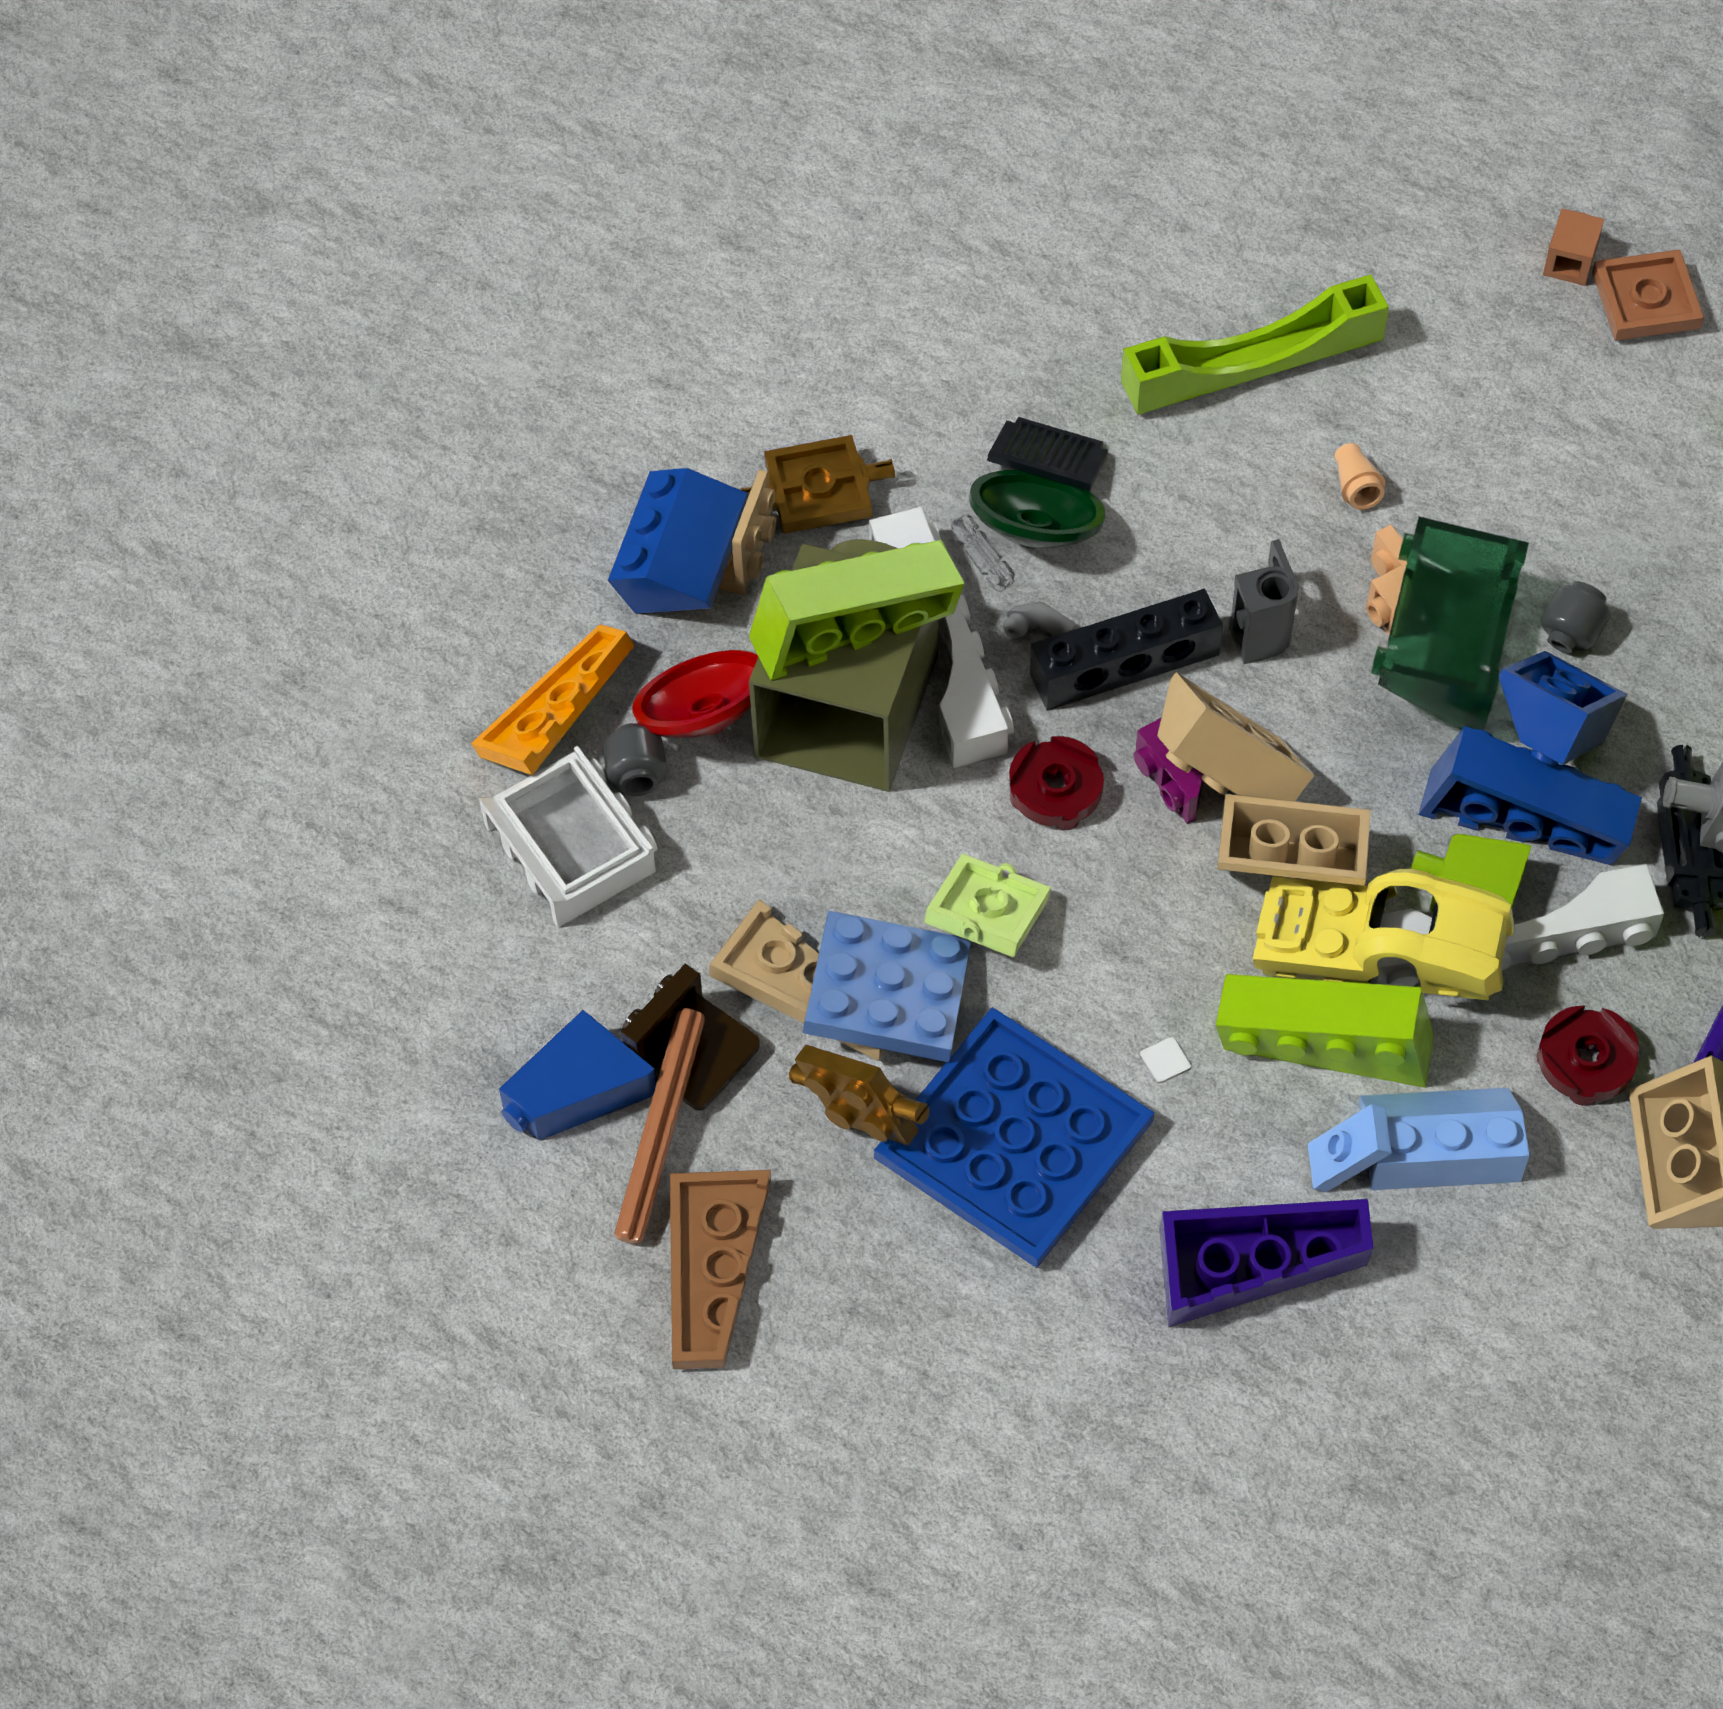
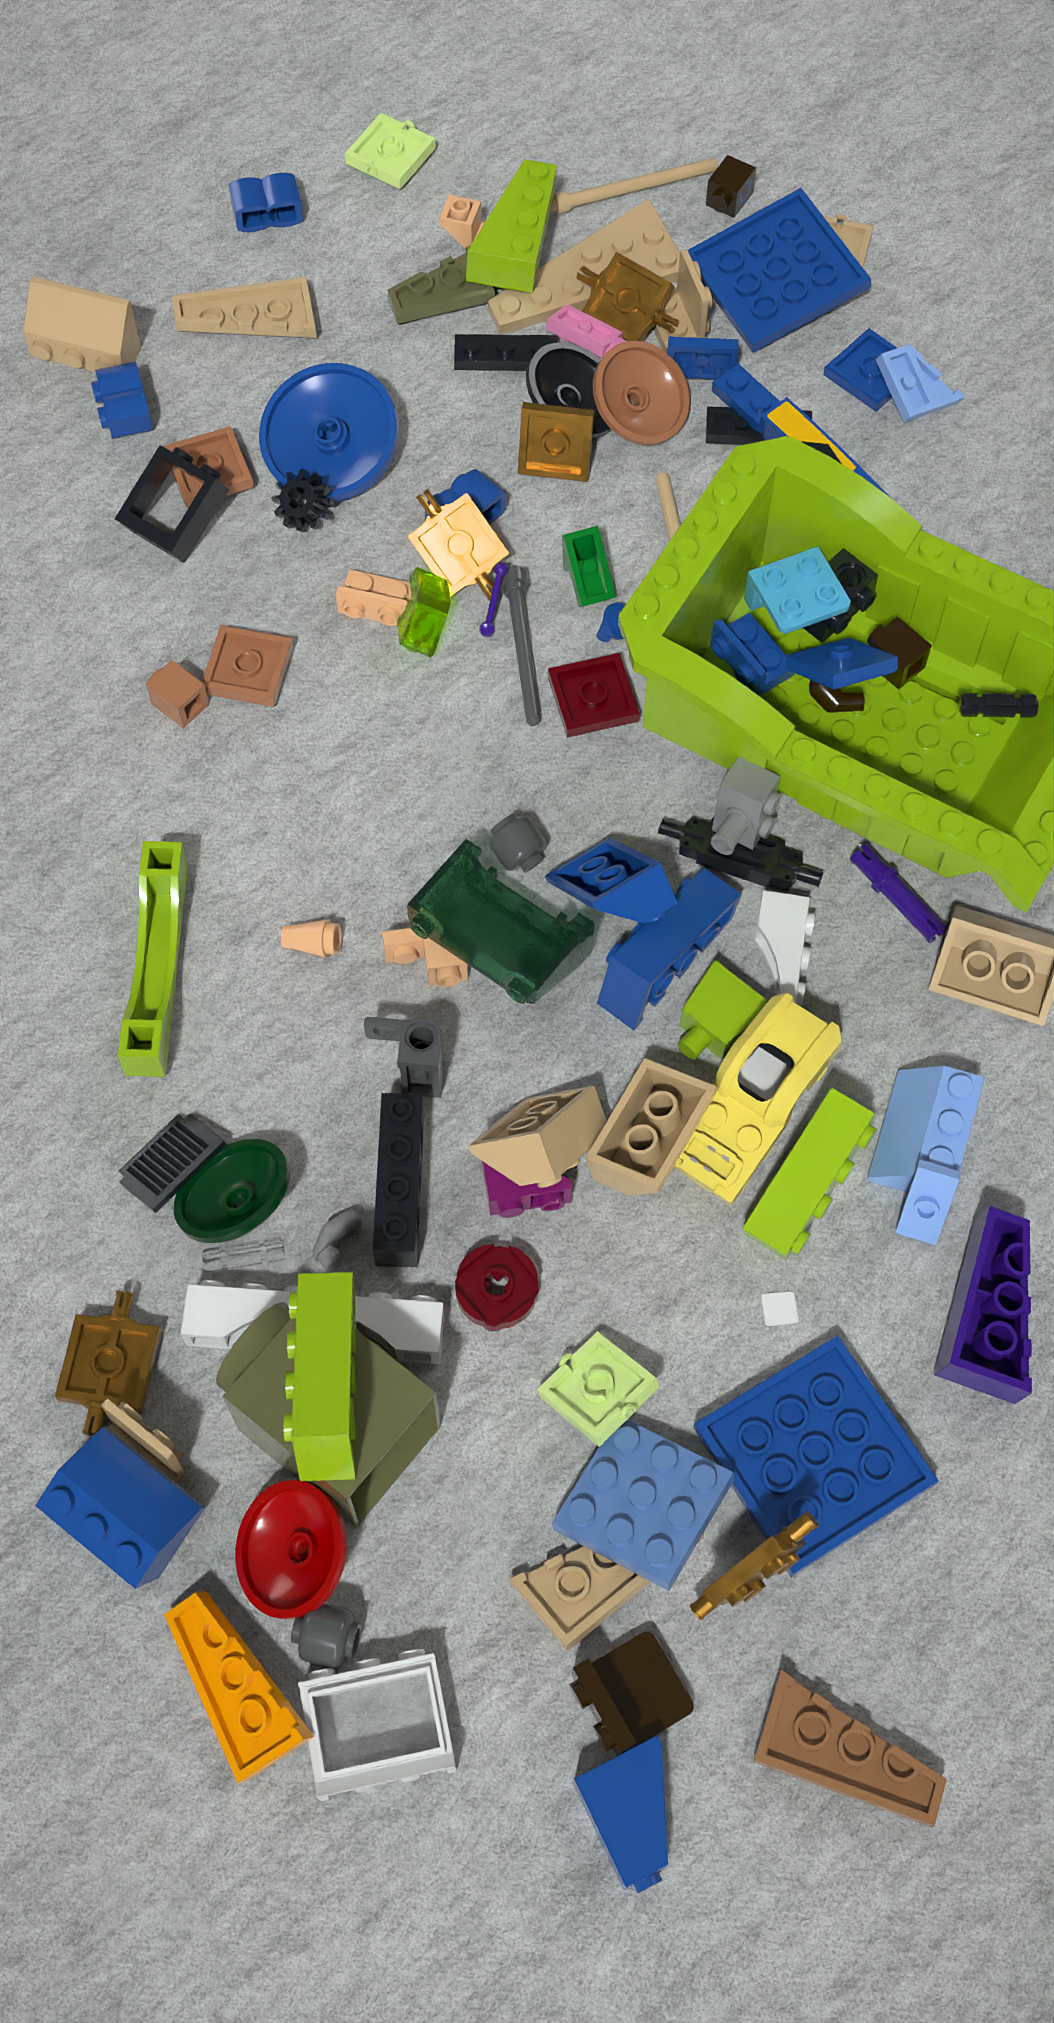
camera: 70 degrees left, 5 degrees up
(659, 1126) = (705, 1752): nougat axle -> none
(1585, 1080) = (883, 1021): dark red plate -> none

